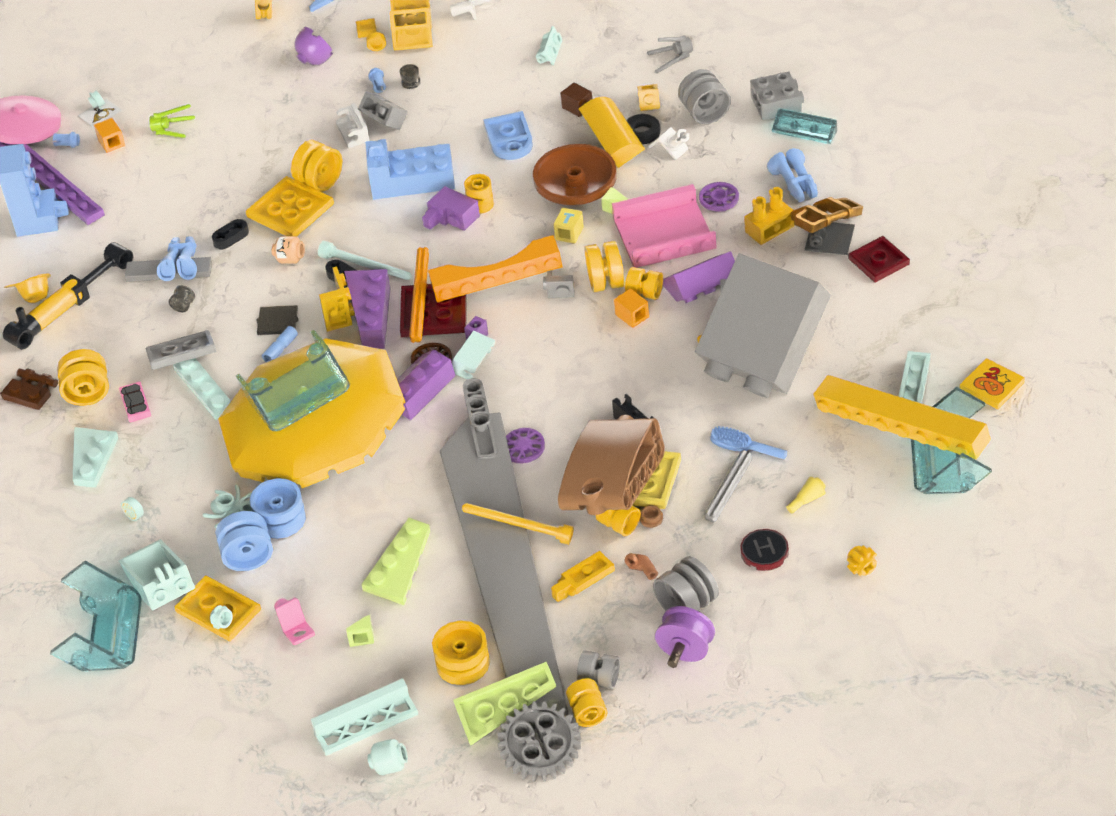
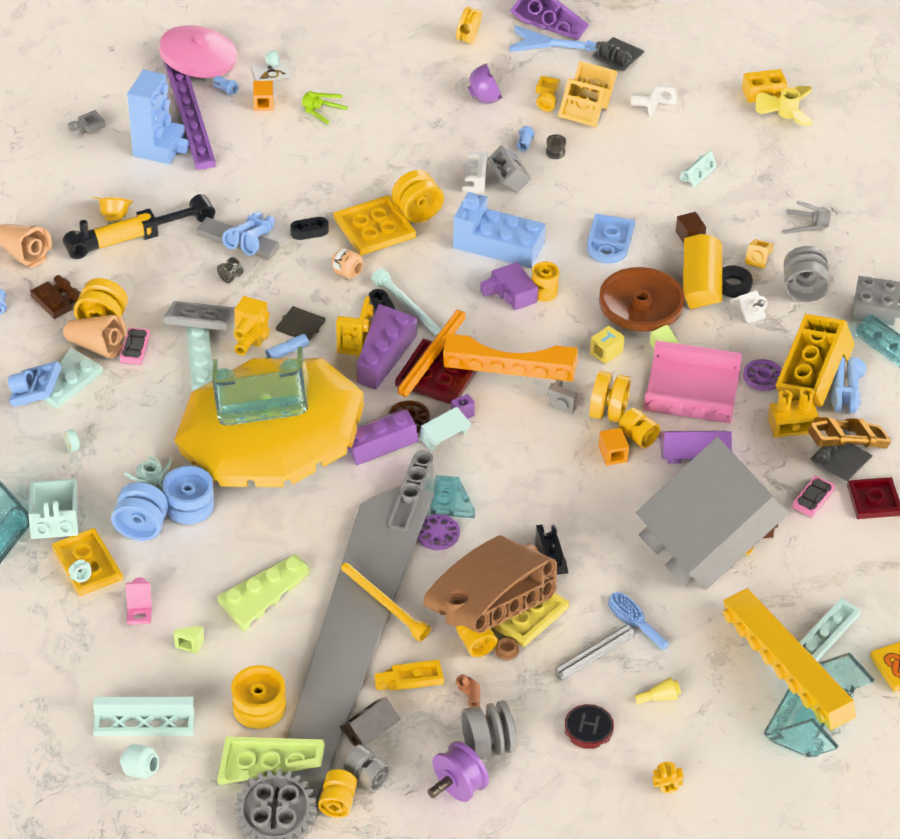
camera: 20 degrees right, 0 degrees up
(63, 473) = (33, 383): none -> light blue plate
(93, 405) = (97, 334): none -> light nougat cone
(236, 336) = (250, 324): none -> yellow brick
(516, 411) = (451, 498): none -> clear light blue wing
(574, 629) = (370, 722): none -> hinge
(759, 160) = (815, 356): none -> yellow hinge
(828, 276) = (813, 496): none -> tile

